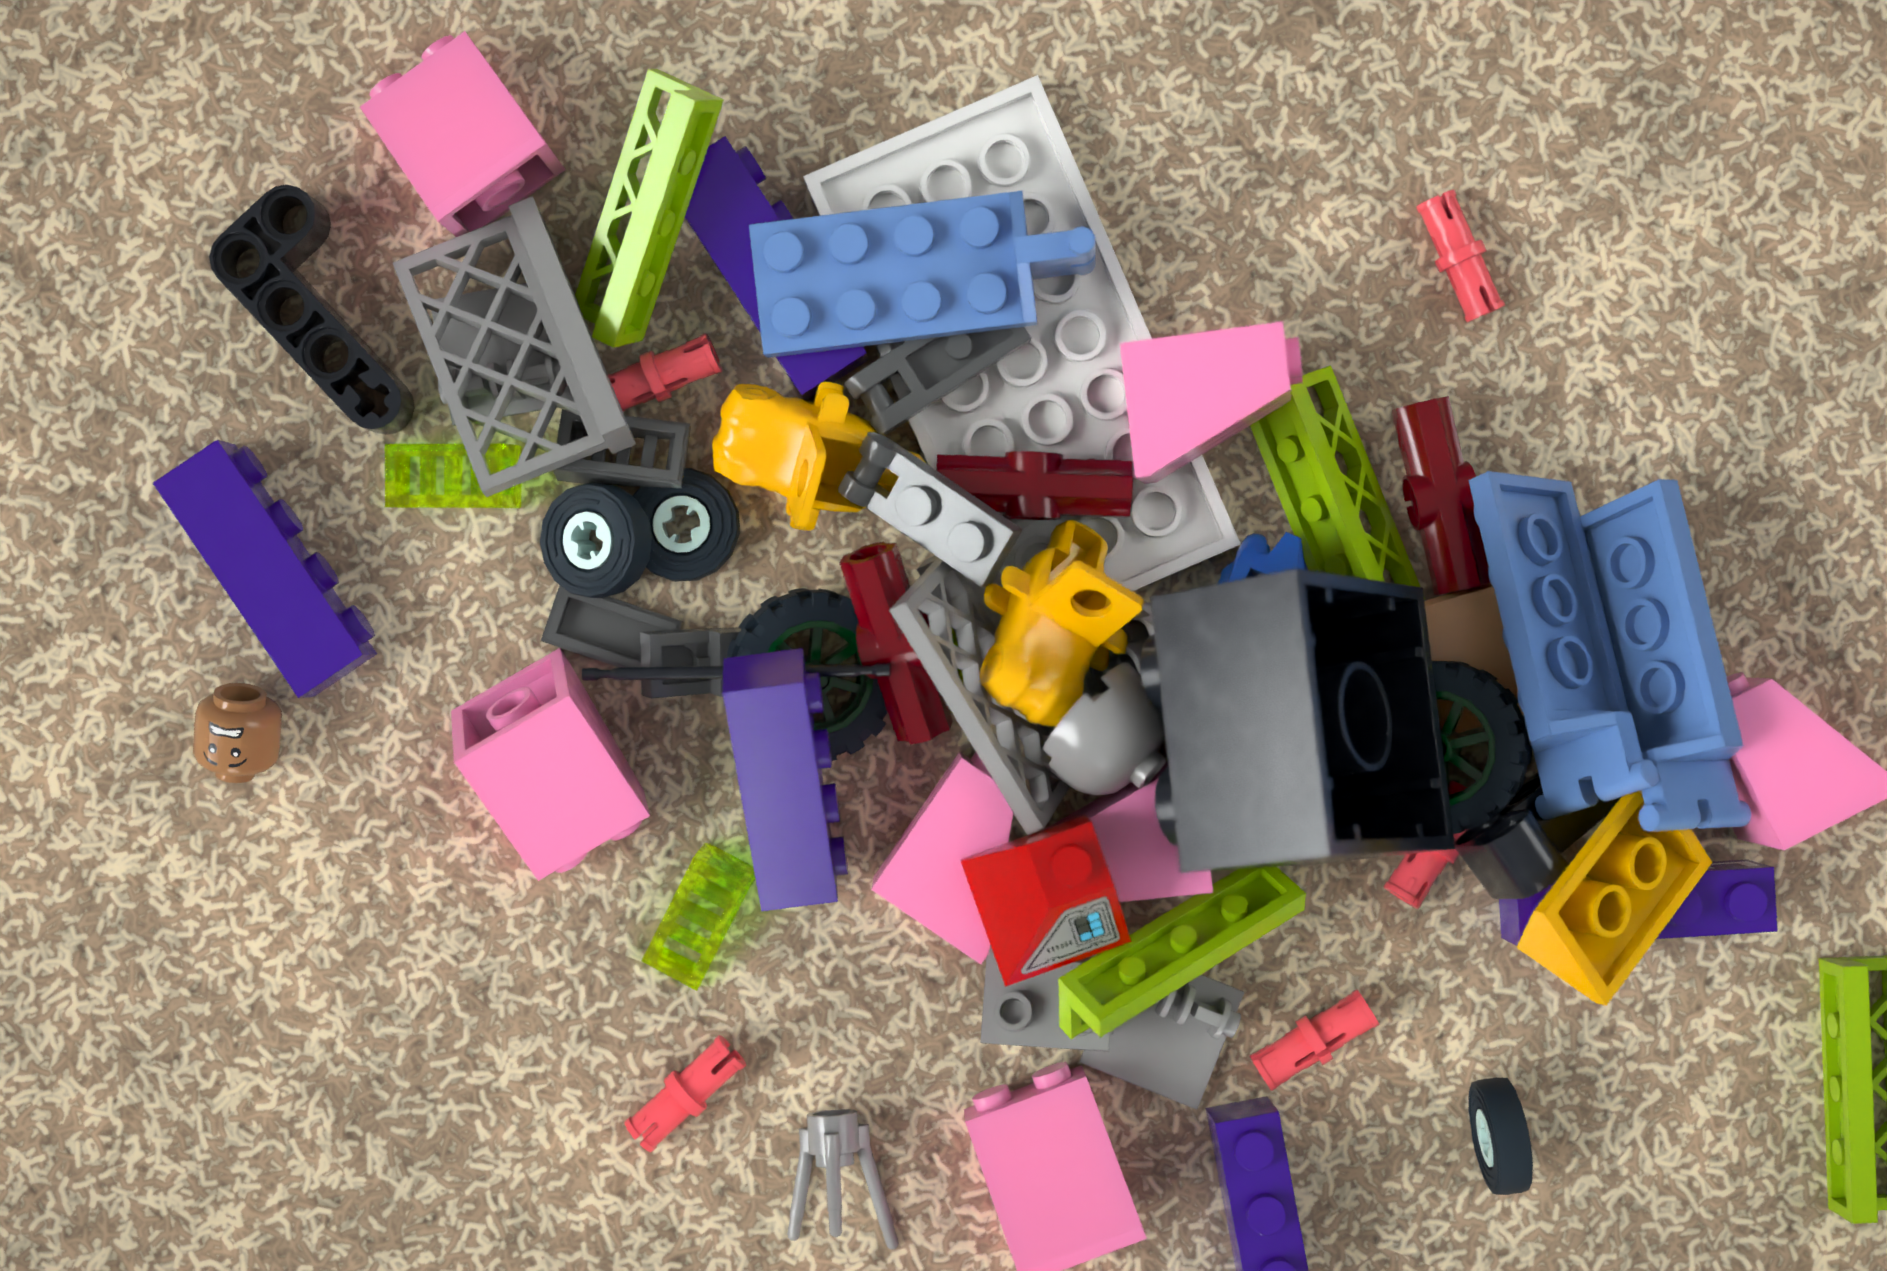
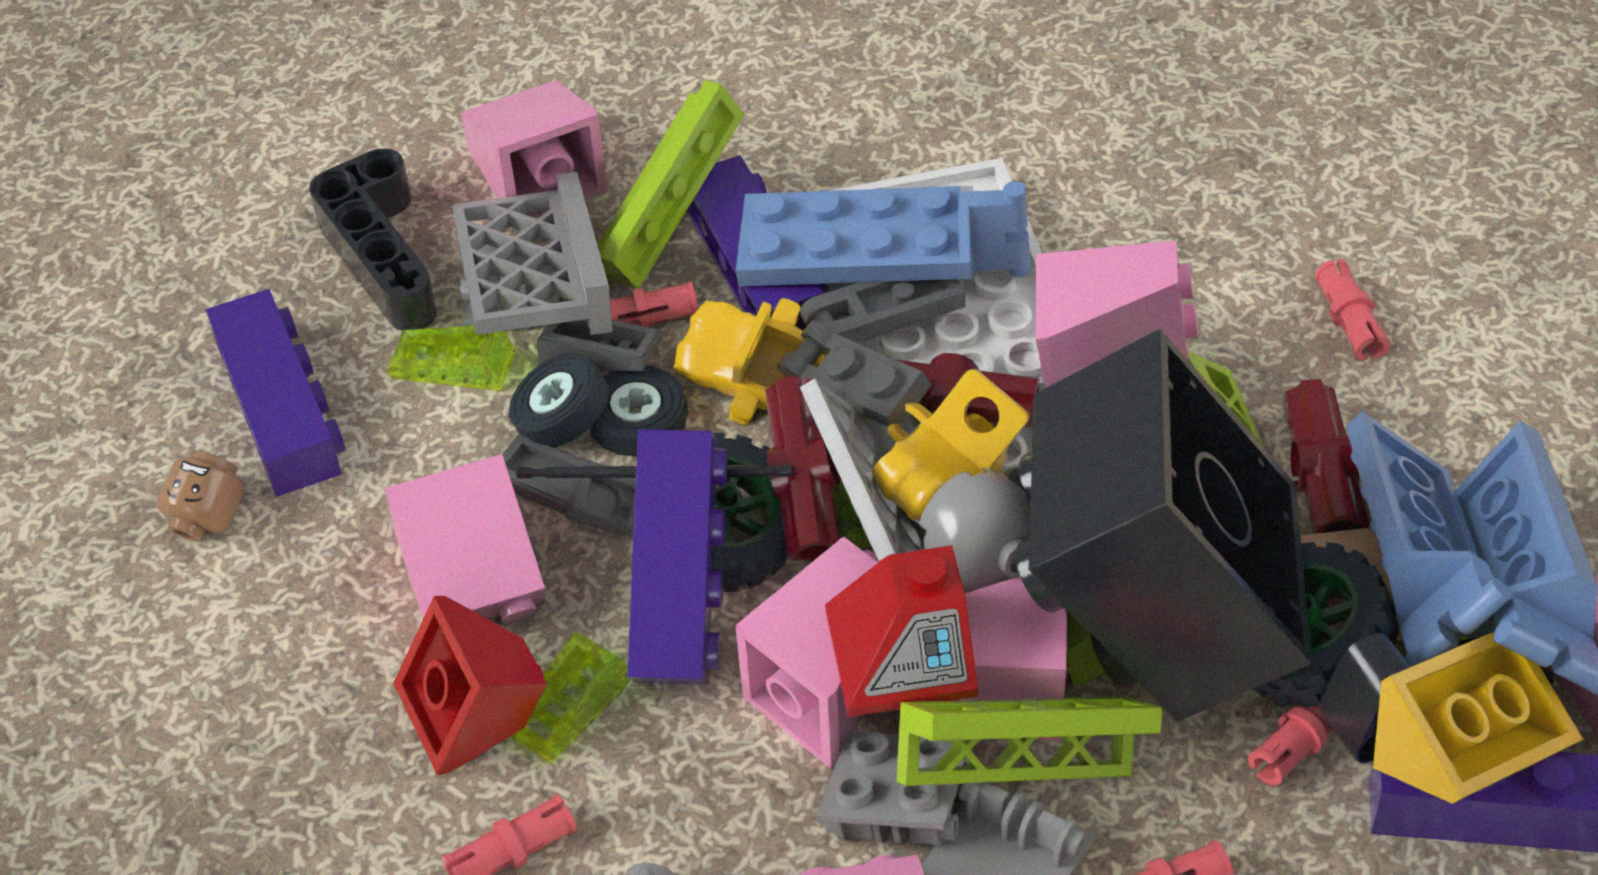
camera: 10 degrees right, 40 degrees down
(601, 943) = (466, 684): none -> red slope

